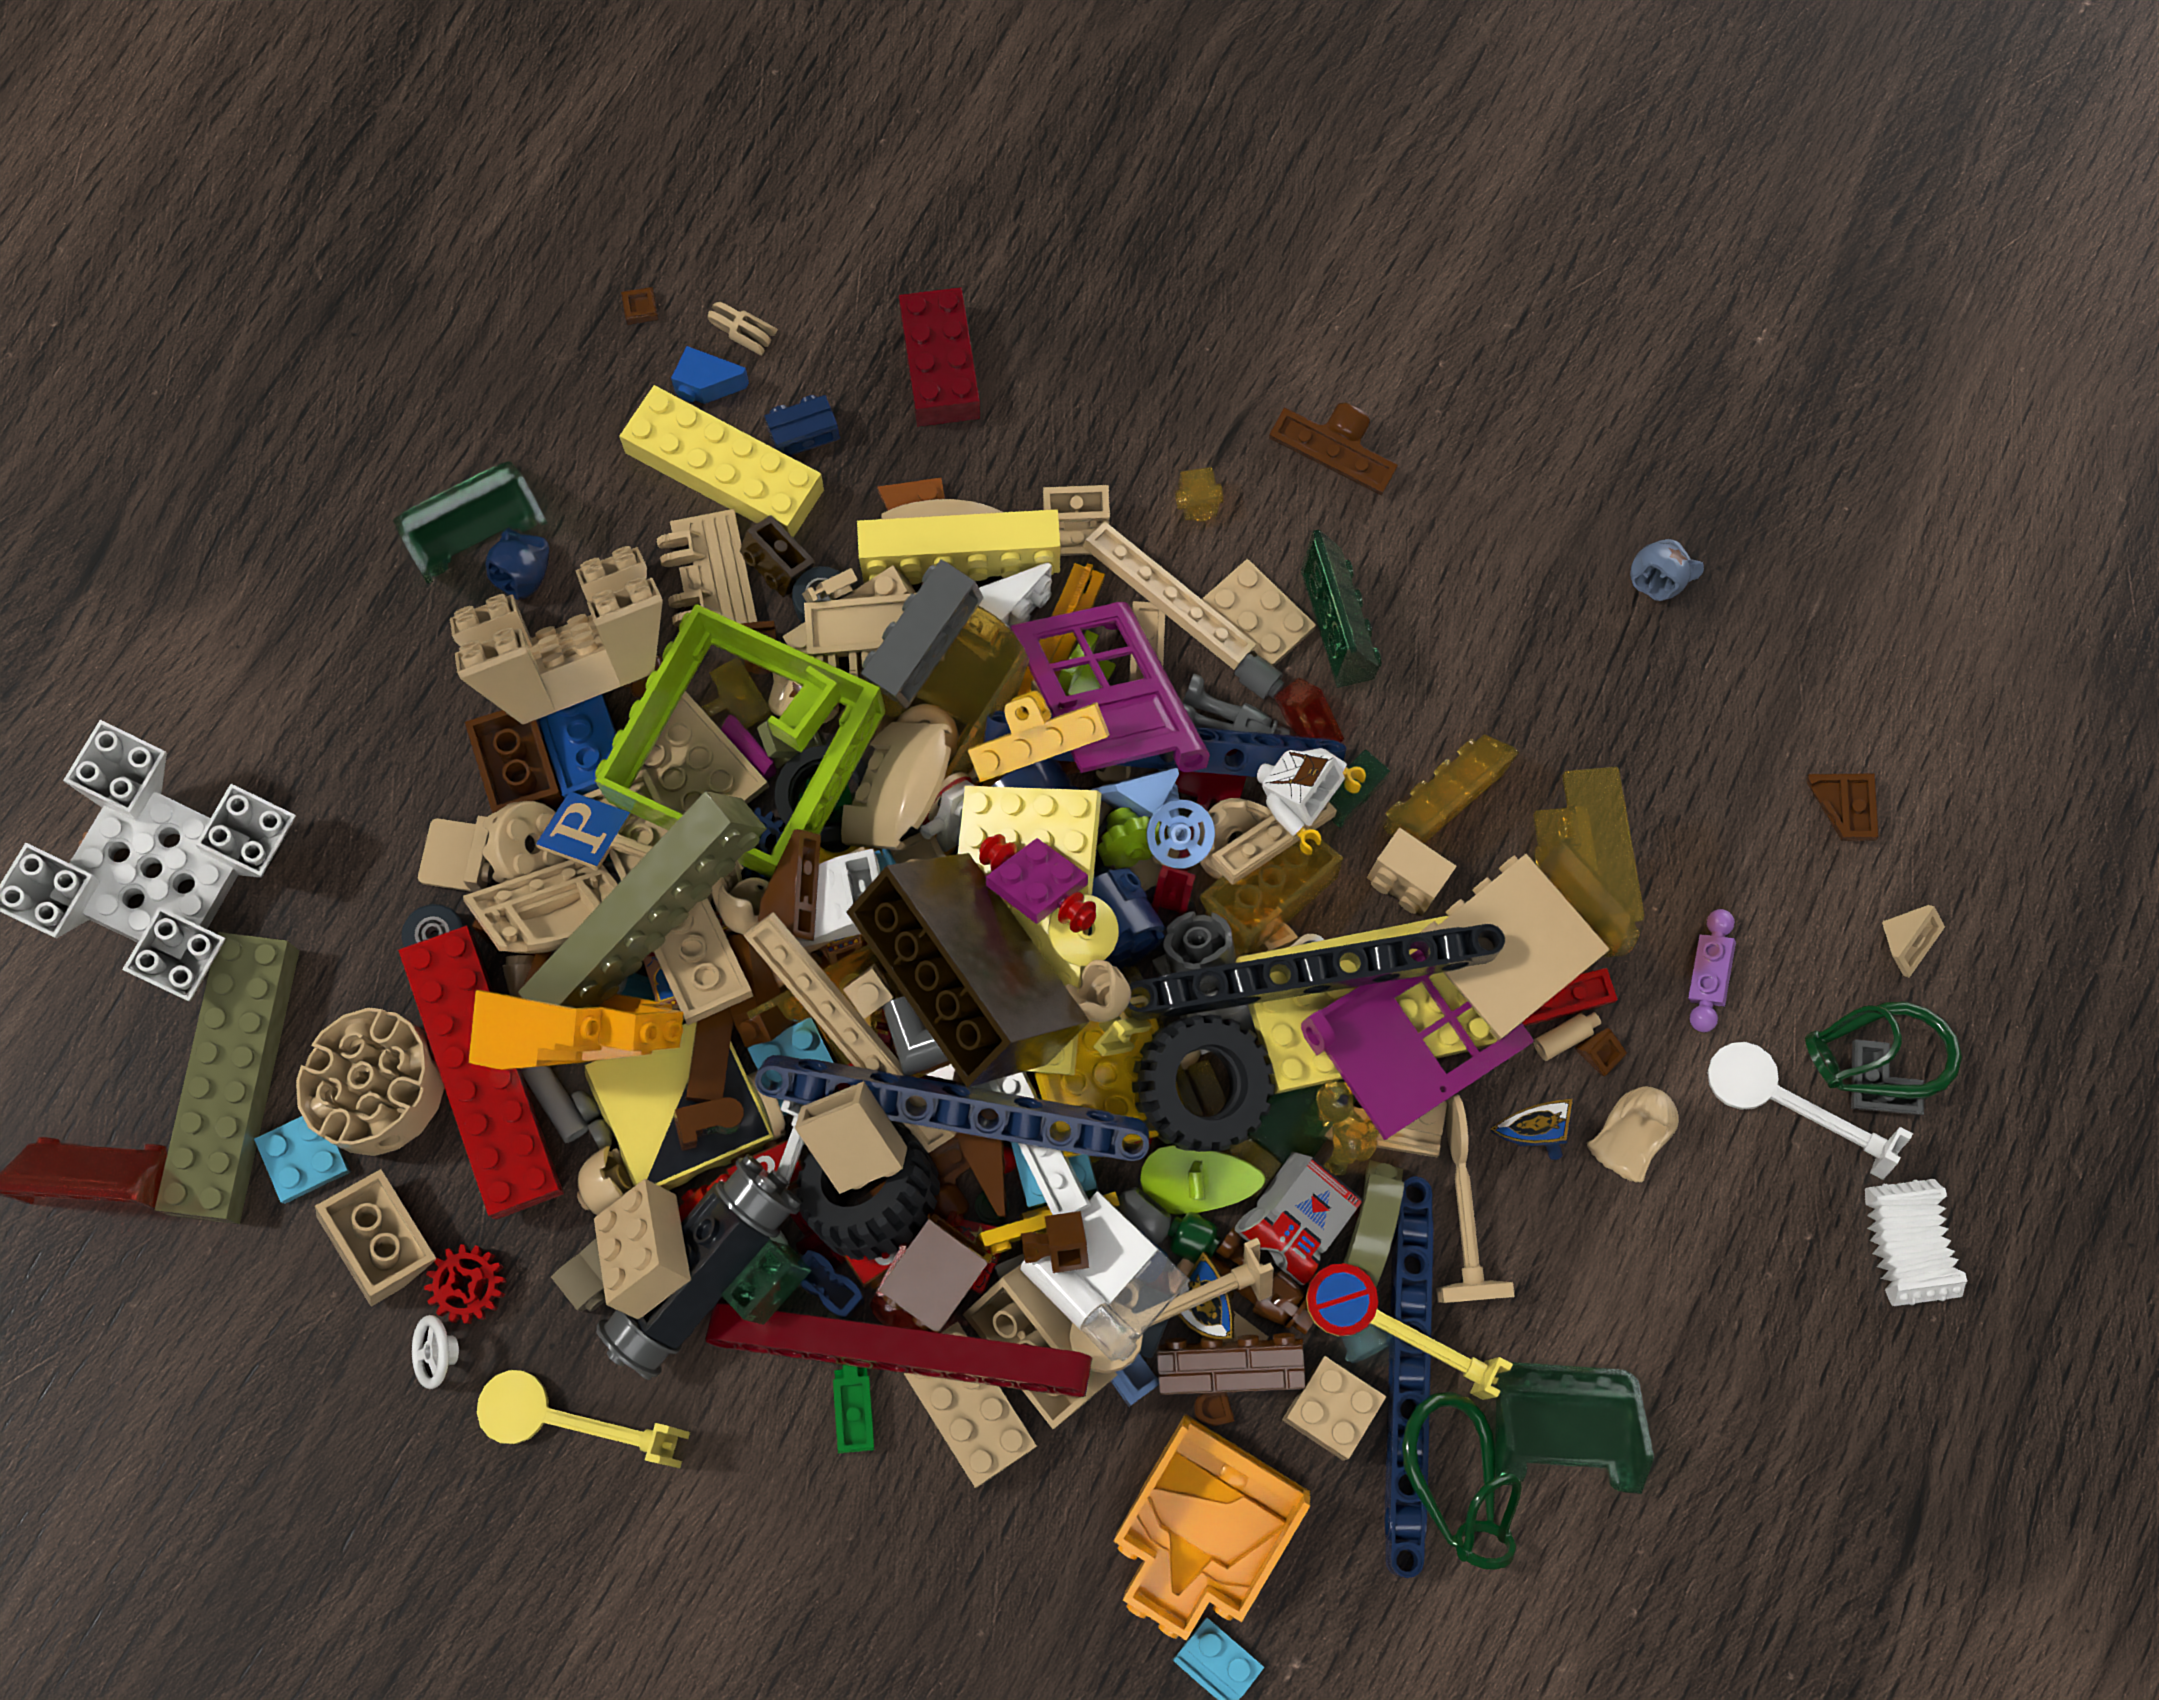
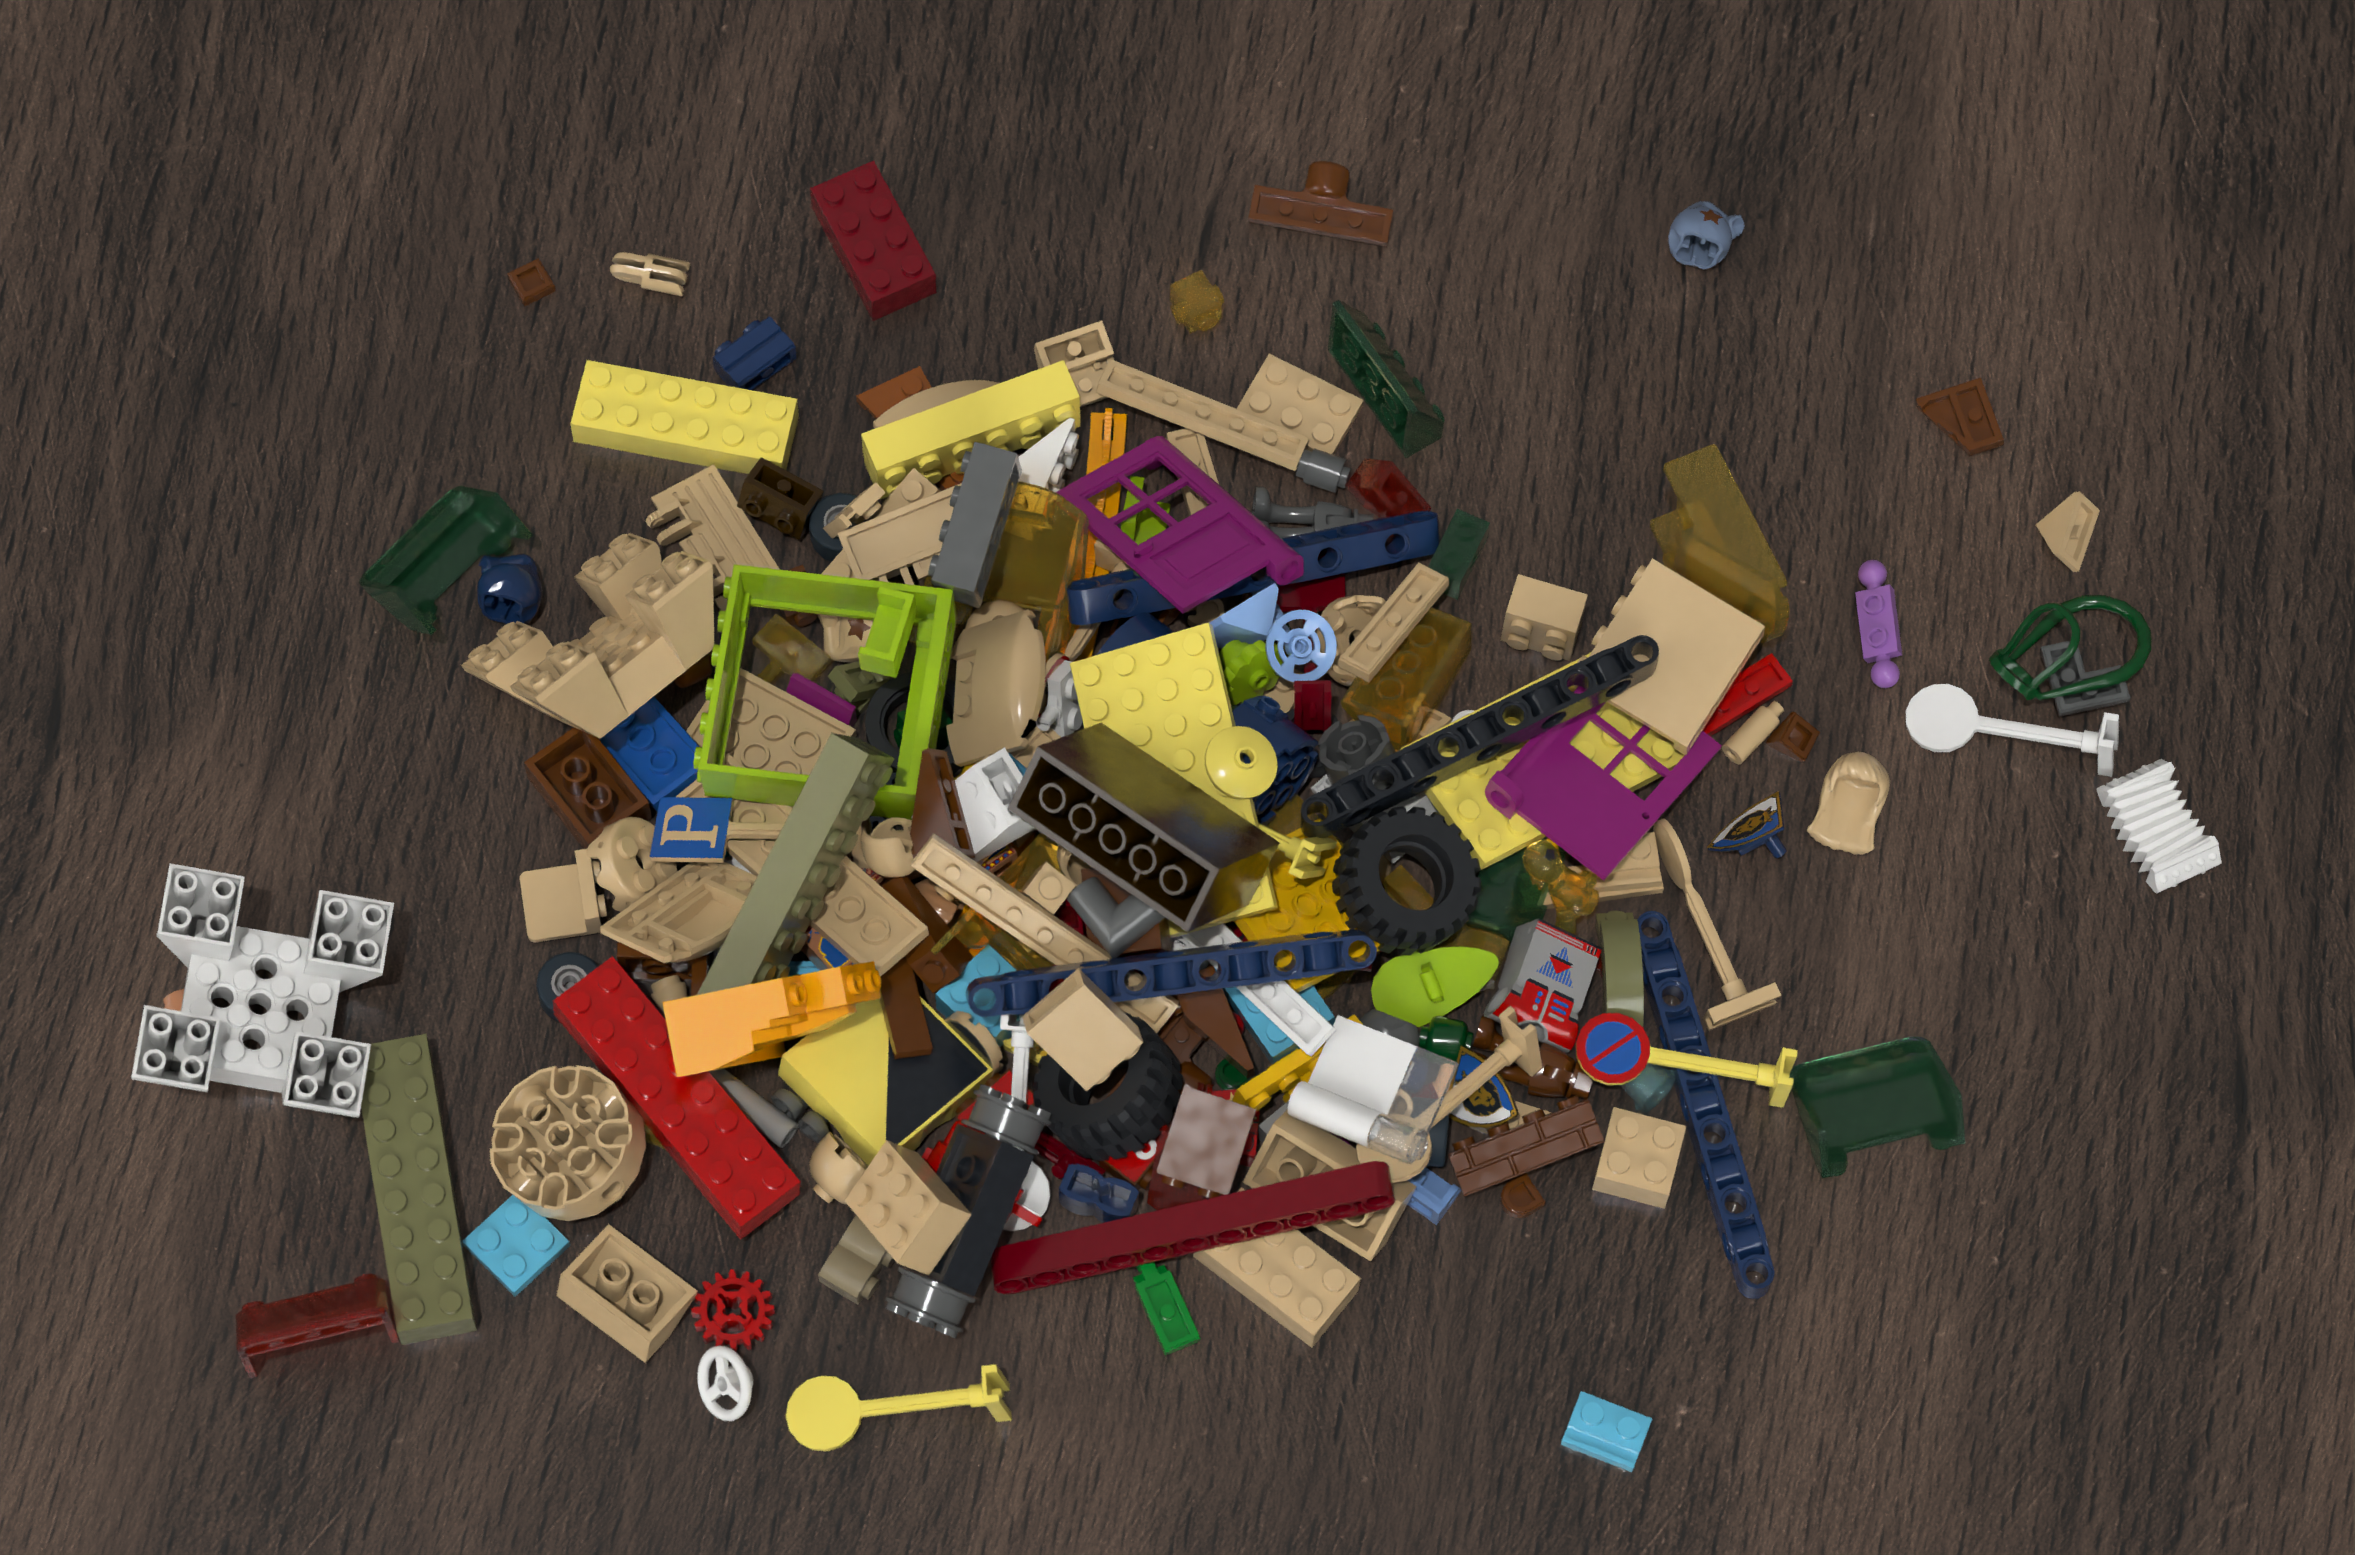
camera: 15 degrees left, 5 degrees down
(706, 377) = (634, 335): blue slope -> none
(706, 1118) = (923, 1068): reddish brown leg -> none
(766, 1282) = (1042, 1201): clear green brick -> none
(1036, 735) = (1125, 591): yellow plate -> none
(1037, 881) = (1181, 726): magenta plate -> none
(1063, 1242) = (1322, 1067): reddish brown brick -> none
(1102, 992) = (1281, 813): tan helmet -> none
(1206, 1530) = (1553, 1306): light orange panel -> none
(1302, 787) = (1408, 562): white torso -> none
(1451, 789) = (1558, 521): clear yellow slope -> none
(1486, 1492) = (1806, 1234): dark green animal -> none

